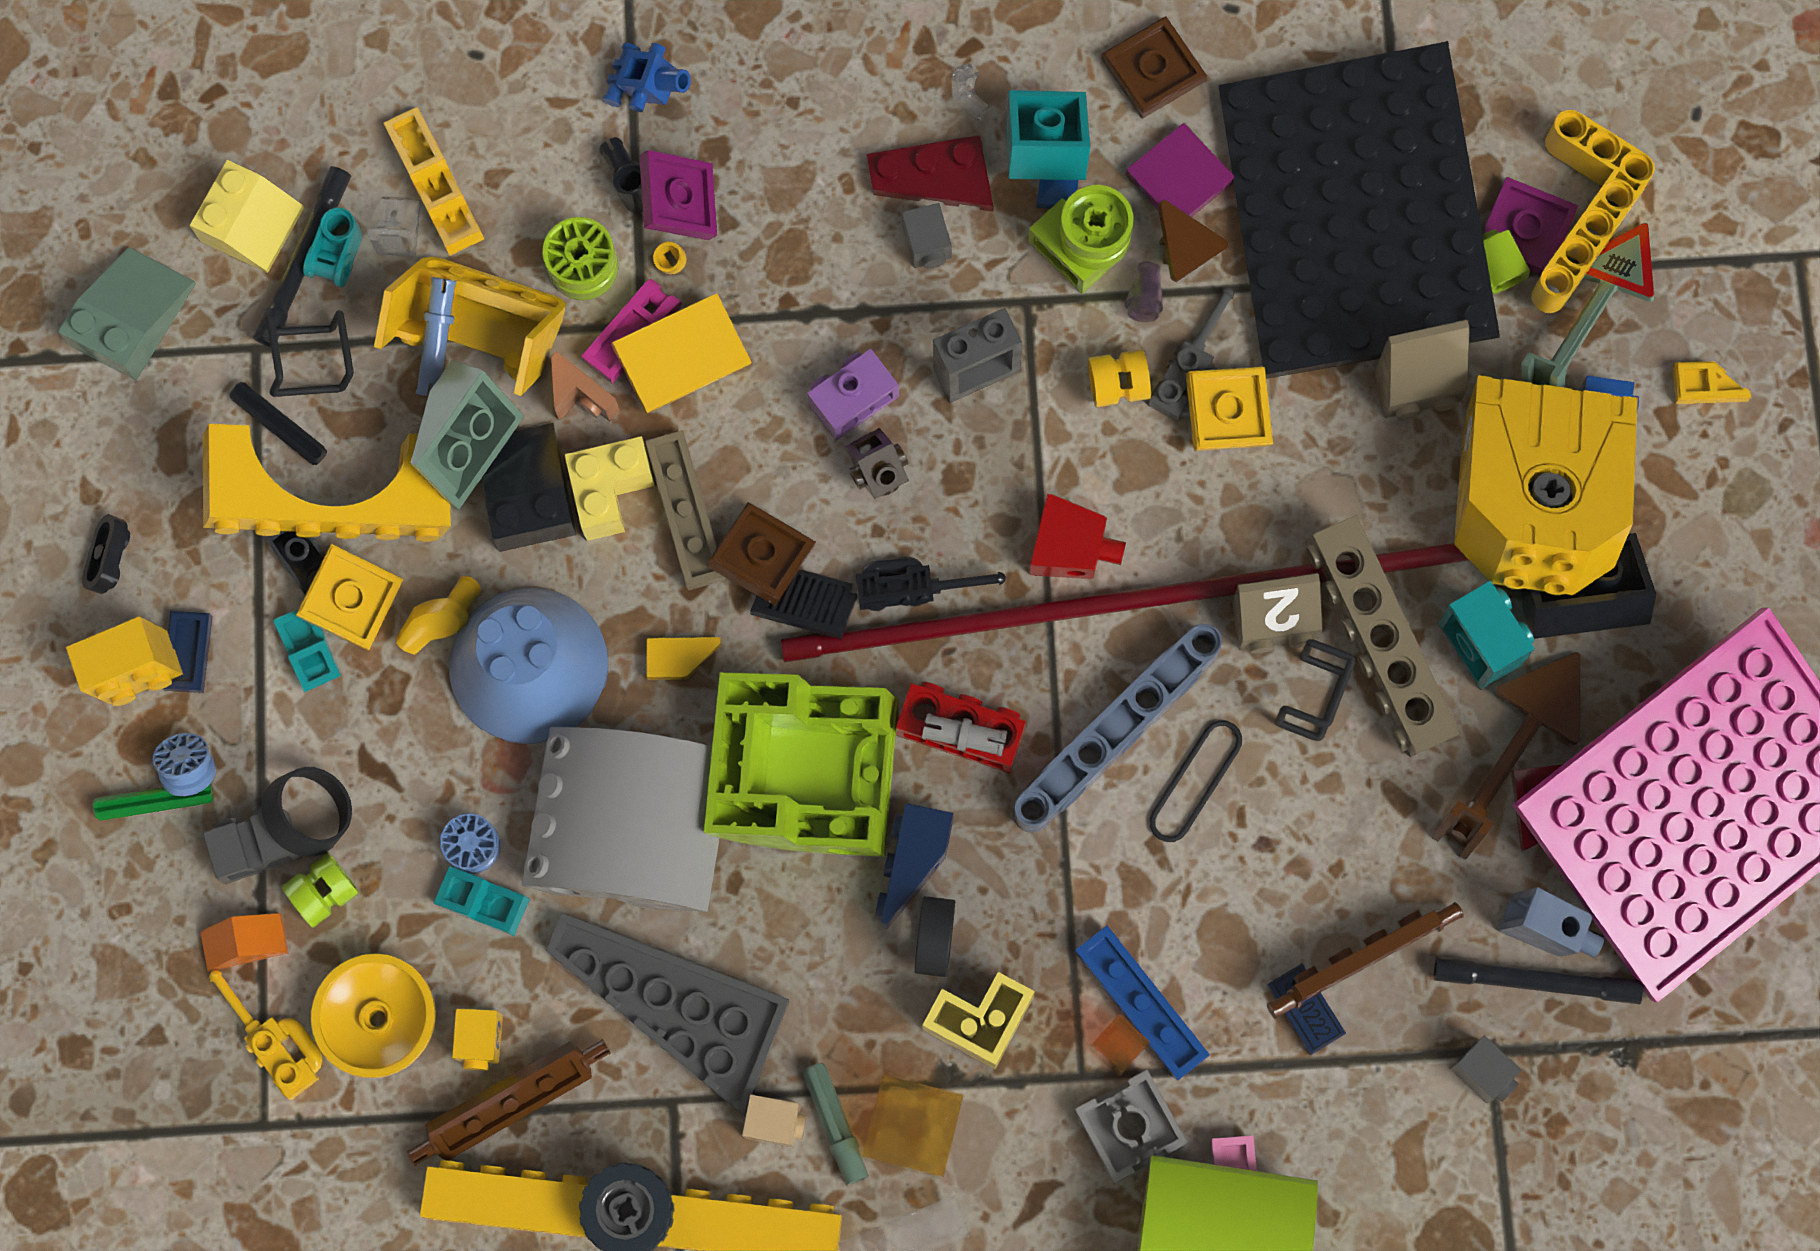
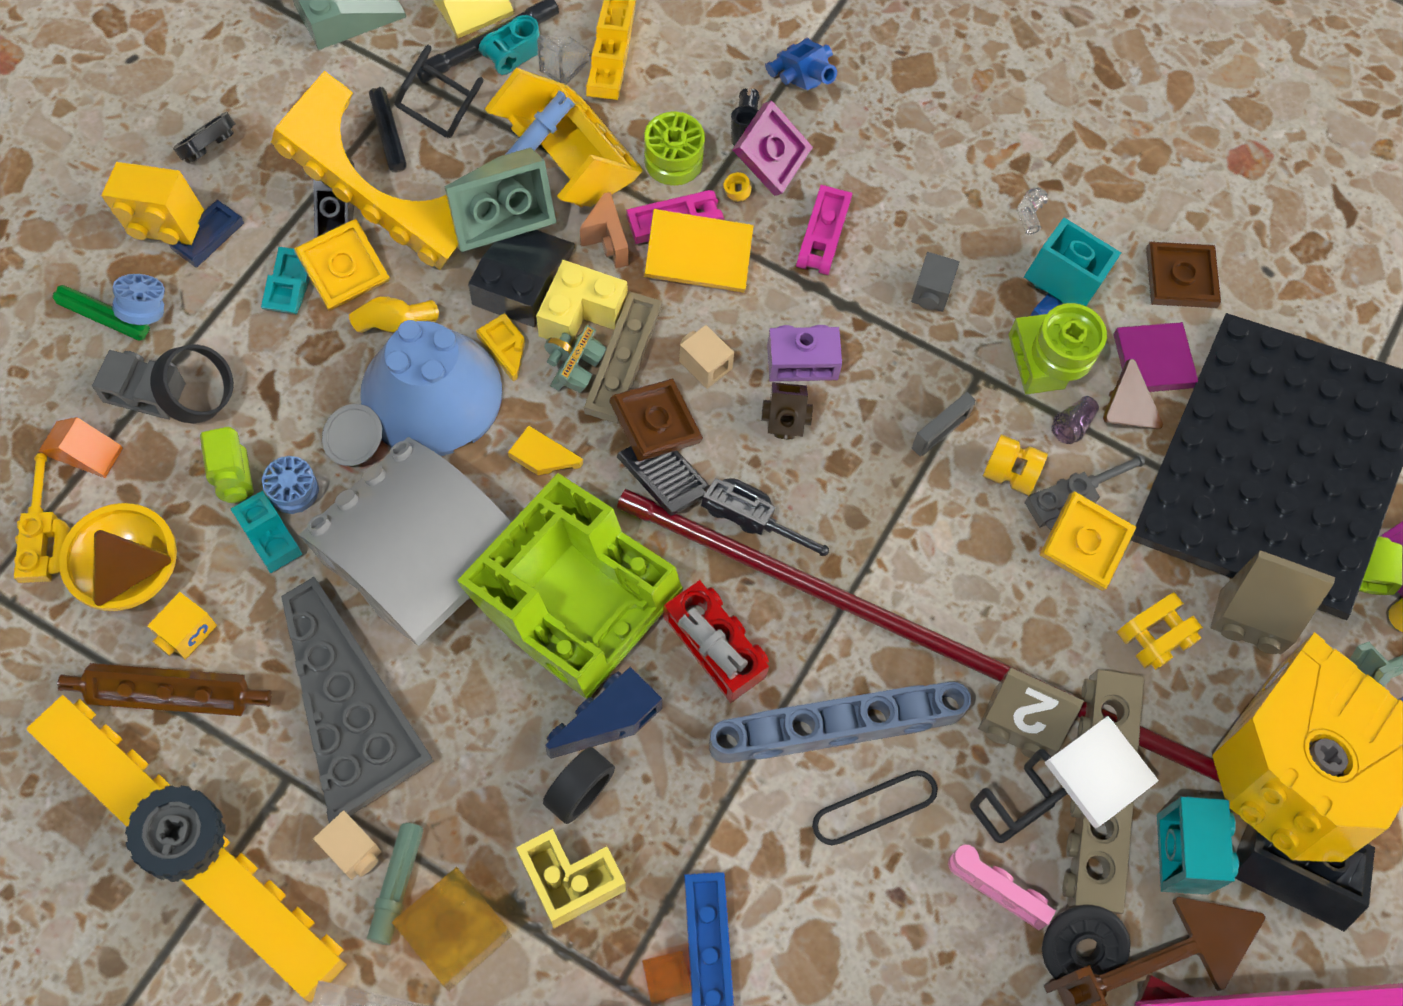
camera: 25 degrees right, 10 degrees down
(309, 899) = (153, 444): lime wheel -> none
(392, 1021) = (121, 565): none -> reddish brown piece
(405, 867) = (226, 464): none -> lime brick
(490, 758) = (352, 434): none -> light grey piece
(561, 571) = (503, 343): none -> yellow tile
(635, 545) = (569, 372): none -> sand green hips
(762, 458) = (705, 356): none -> tan brick
(784, 246) = (824, 228): none -> dark pink plate
(935, 171) = (981, 251): dark red wing -> none
(972, 363) = (928, 374): dark grey window -> none
(1028, 379) = (943, 424): none -> dark grey tile
(1072, 541) = (897, 559): red torso -> none
(1343, 779) = (999, 886): none -> bright pink plate
(1365, 443) = (1158, 651): none -> yellow brick
(1370, 626) = (1101, 772): none -> white slope
(1431, 766) = (1085, 923): none -> black wheel

